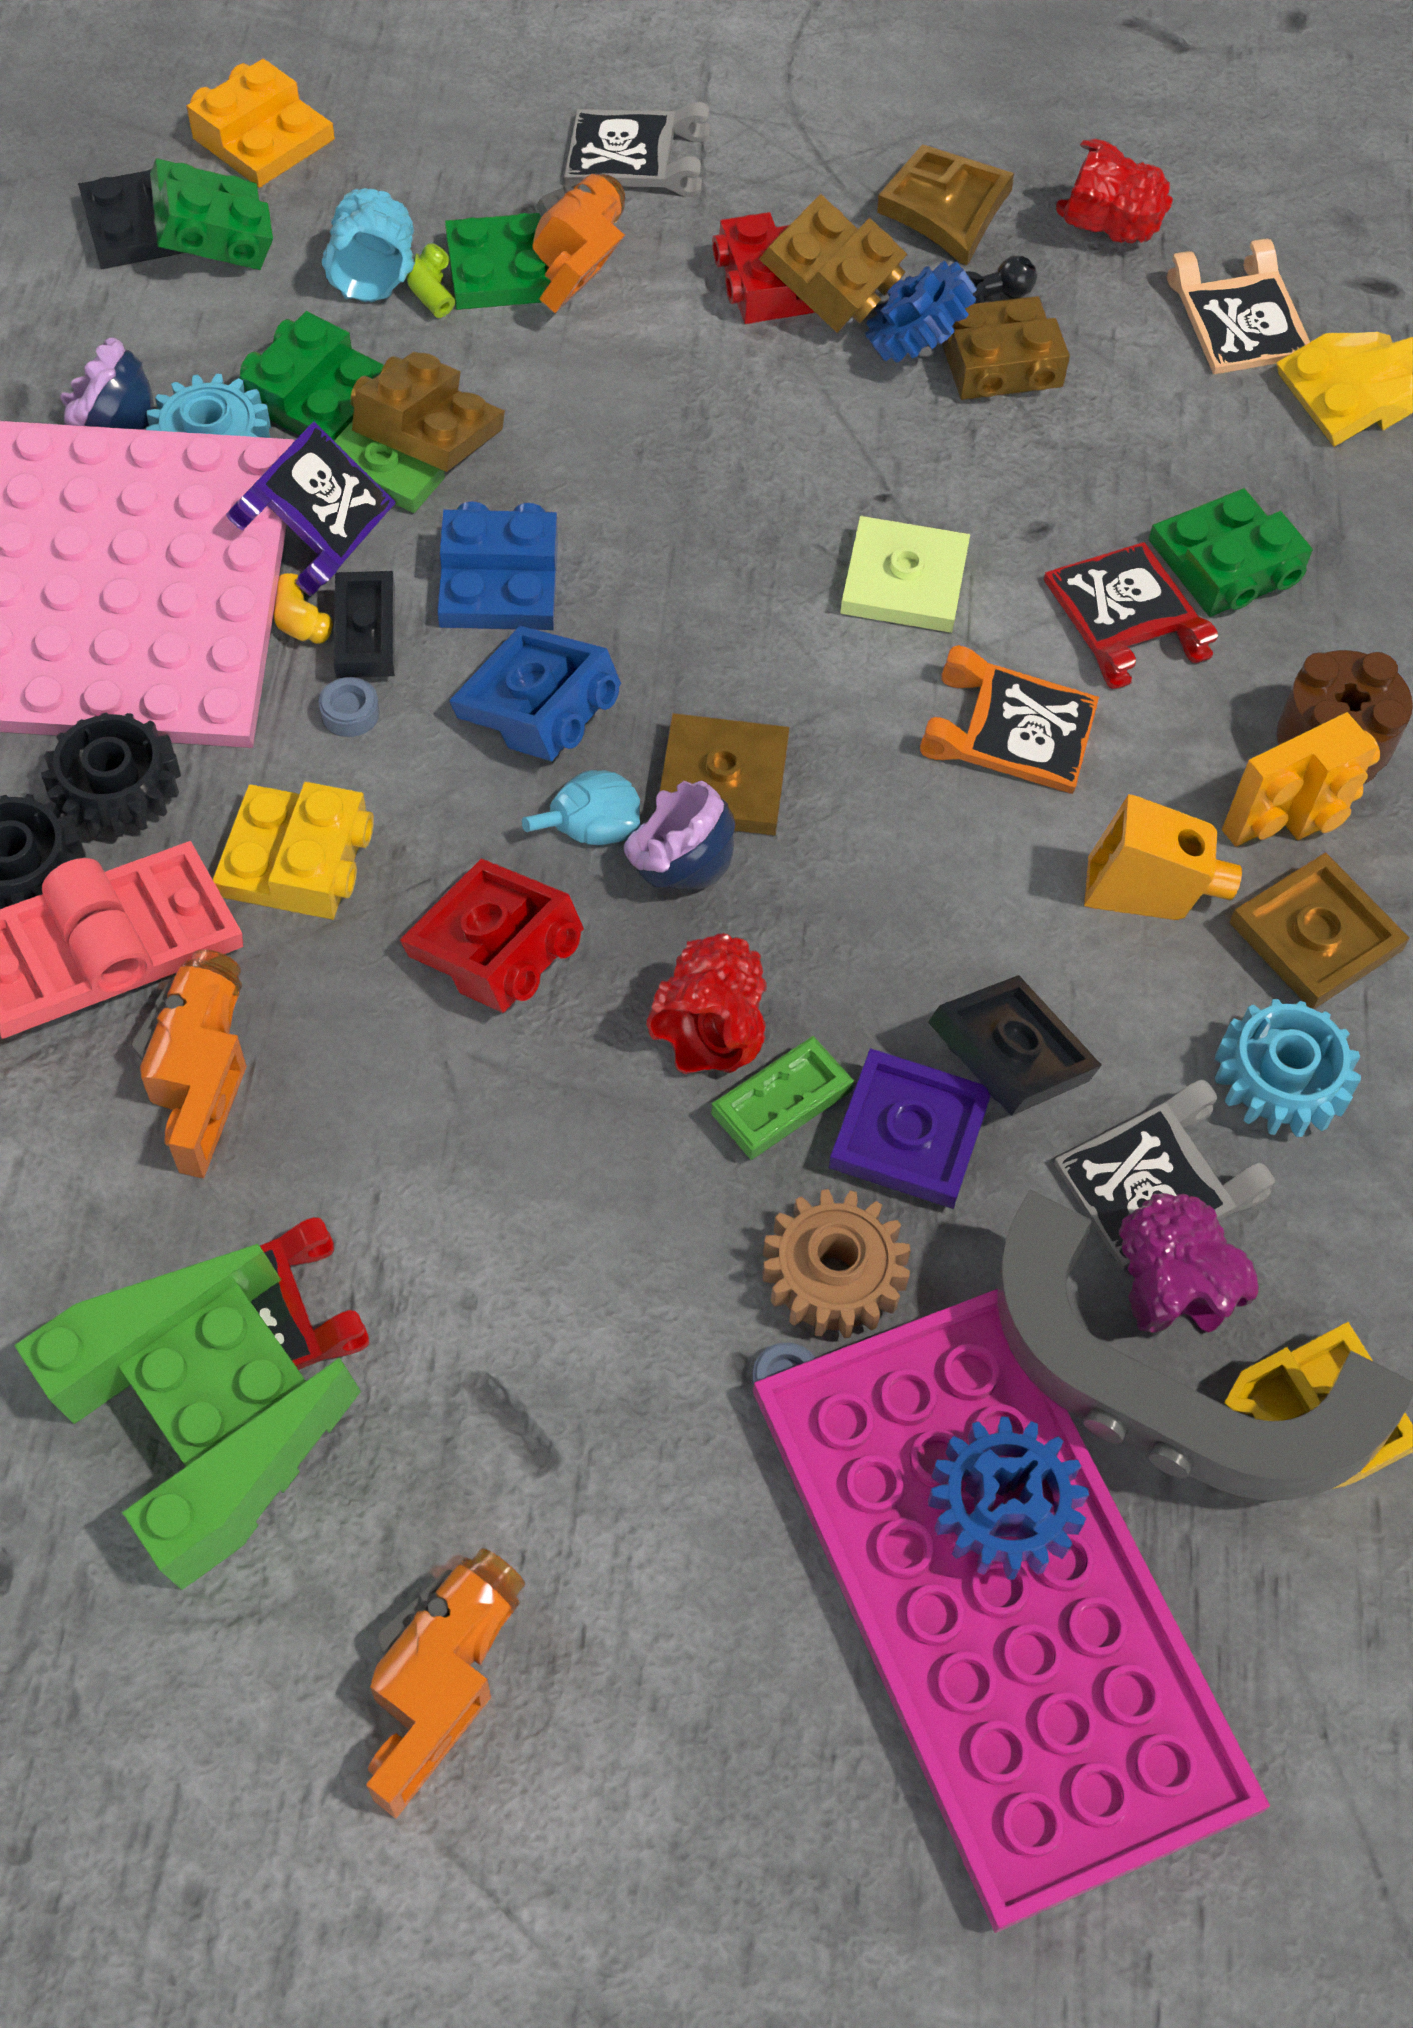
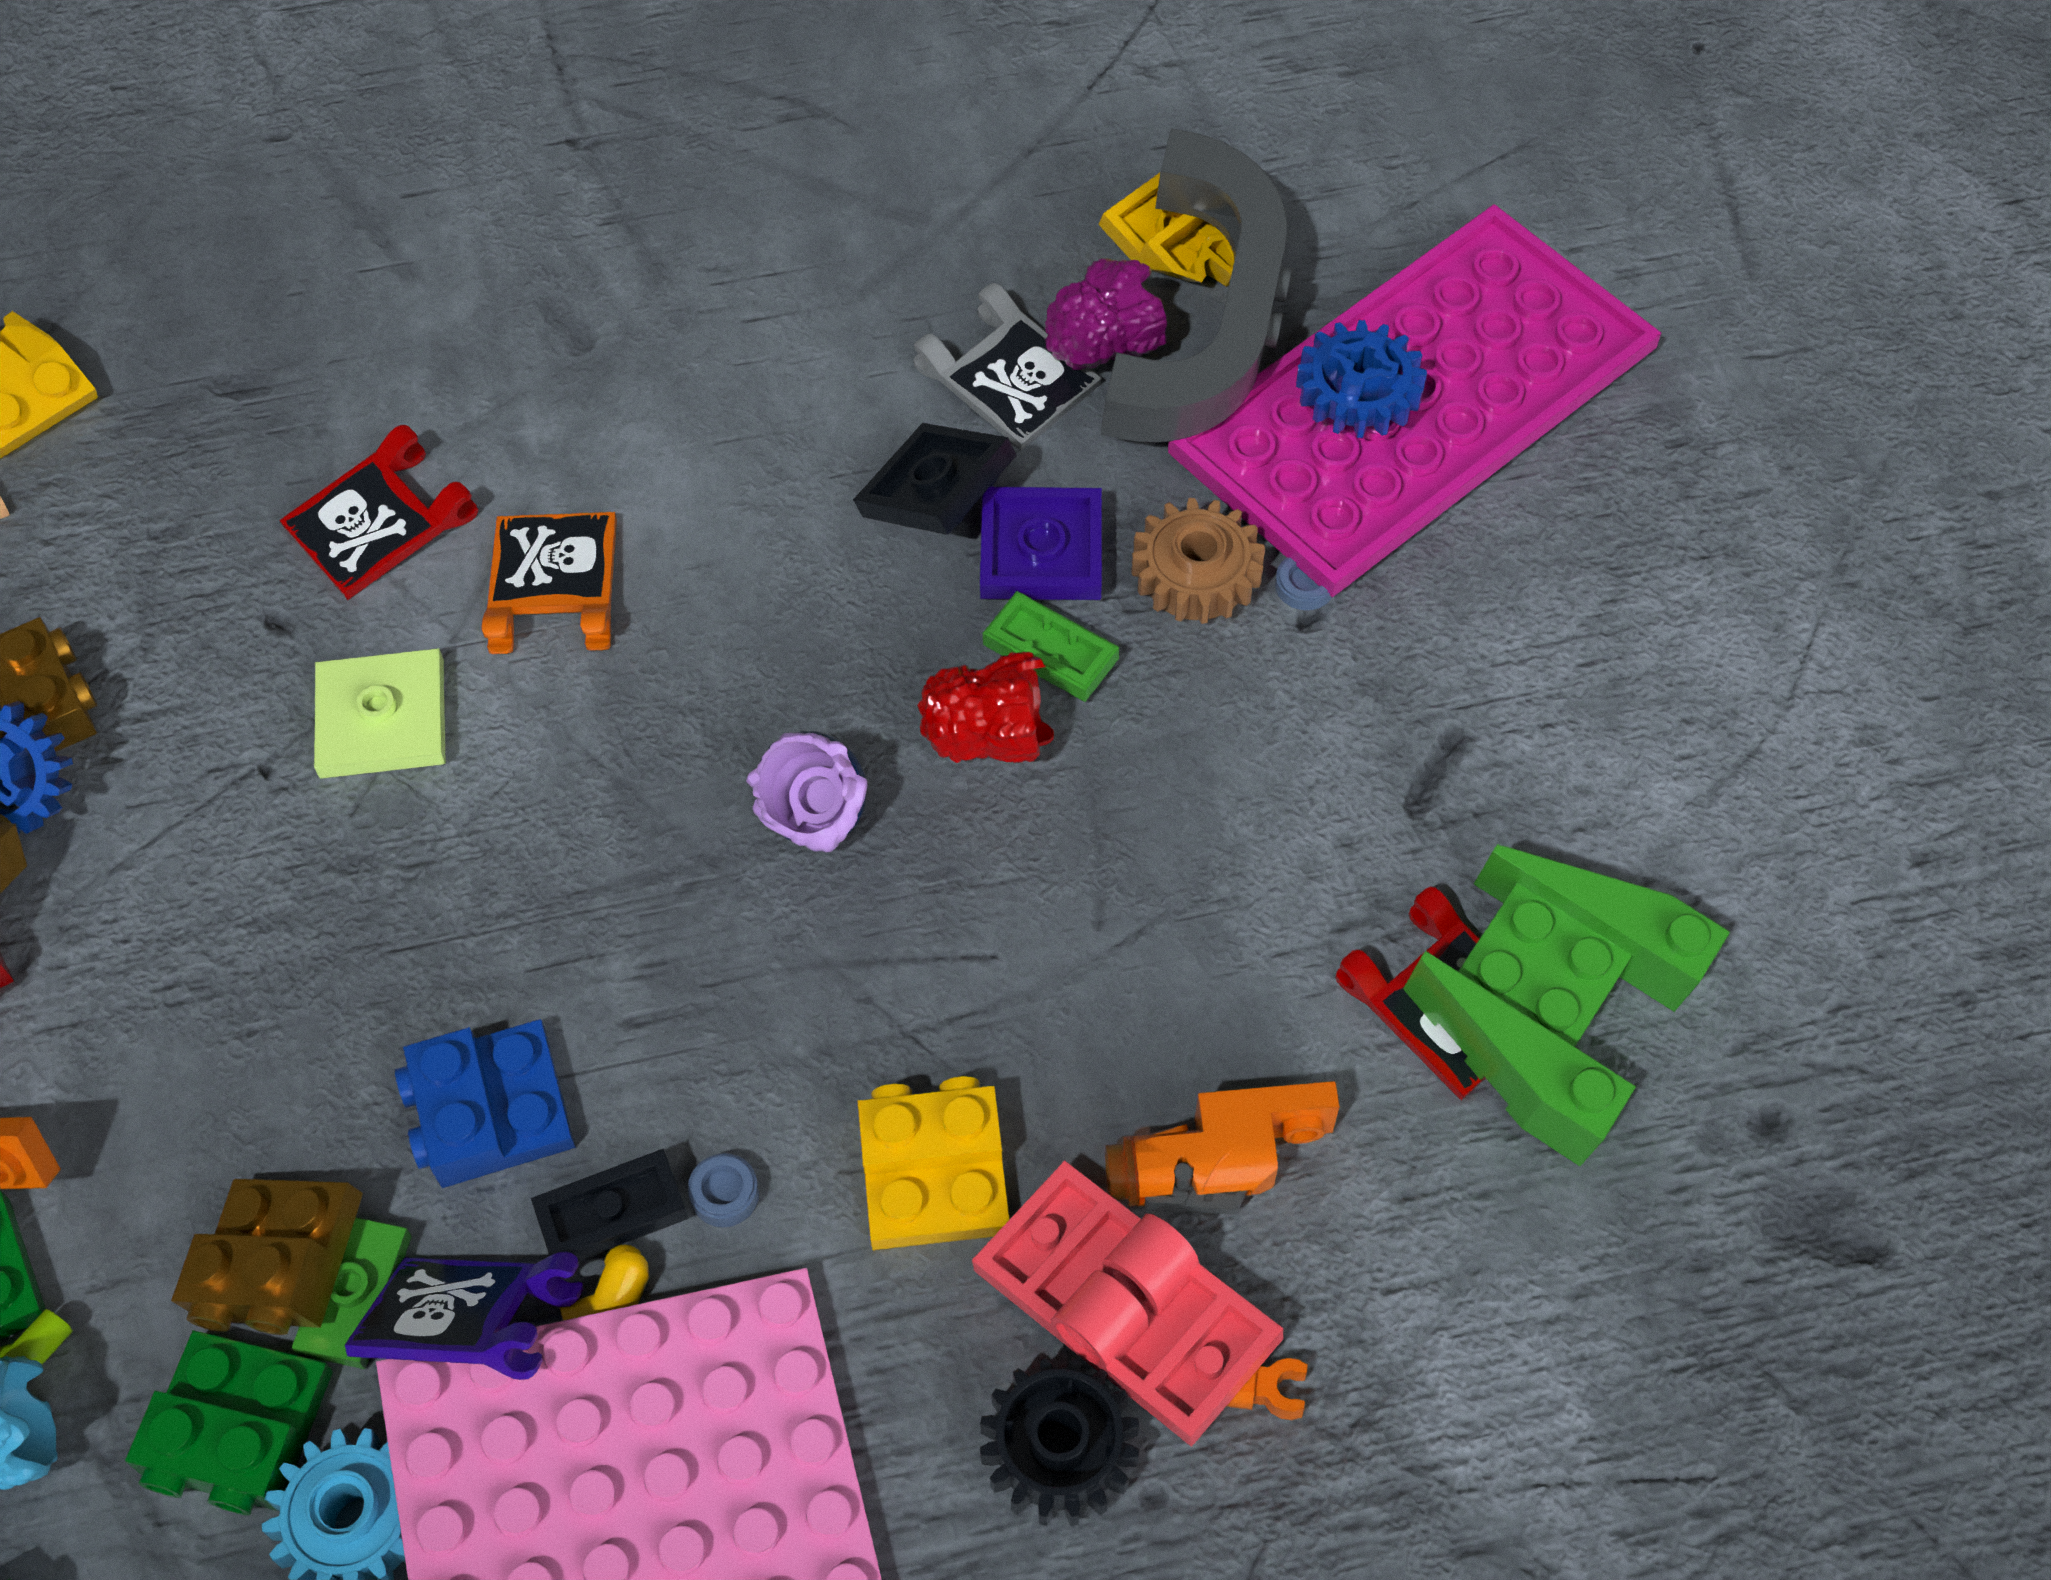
camera: 105 degrees left, 0 degrees up
(111, 772) = (918, 1424): black gear -> none
(429, 1673) = (1687, 732): orange plate -> none
(496, 934) = (974, 927): red plate -> none
(539, 691) = (655, 991): blue plate -> none
(592, 809) = (780, 903): medium azure piece -> none
(736, 760) = (694, 803): pearl gold plate -> none
(1156, 863) = (698, 397): light orange torso -> none
(1231, 551) = (278, 443): green plate -> none
(1303, 783) = (578, 318): light orange plate -> none
(1305, 1040) = (874, 295): medium azure gear -> none
(1319, 930) = (721, 302): pearl gold plate -> none
(1355, 684) = (479, 312): reddish brown brick -> none

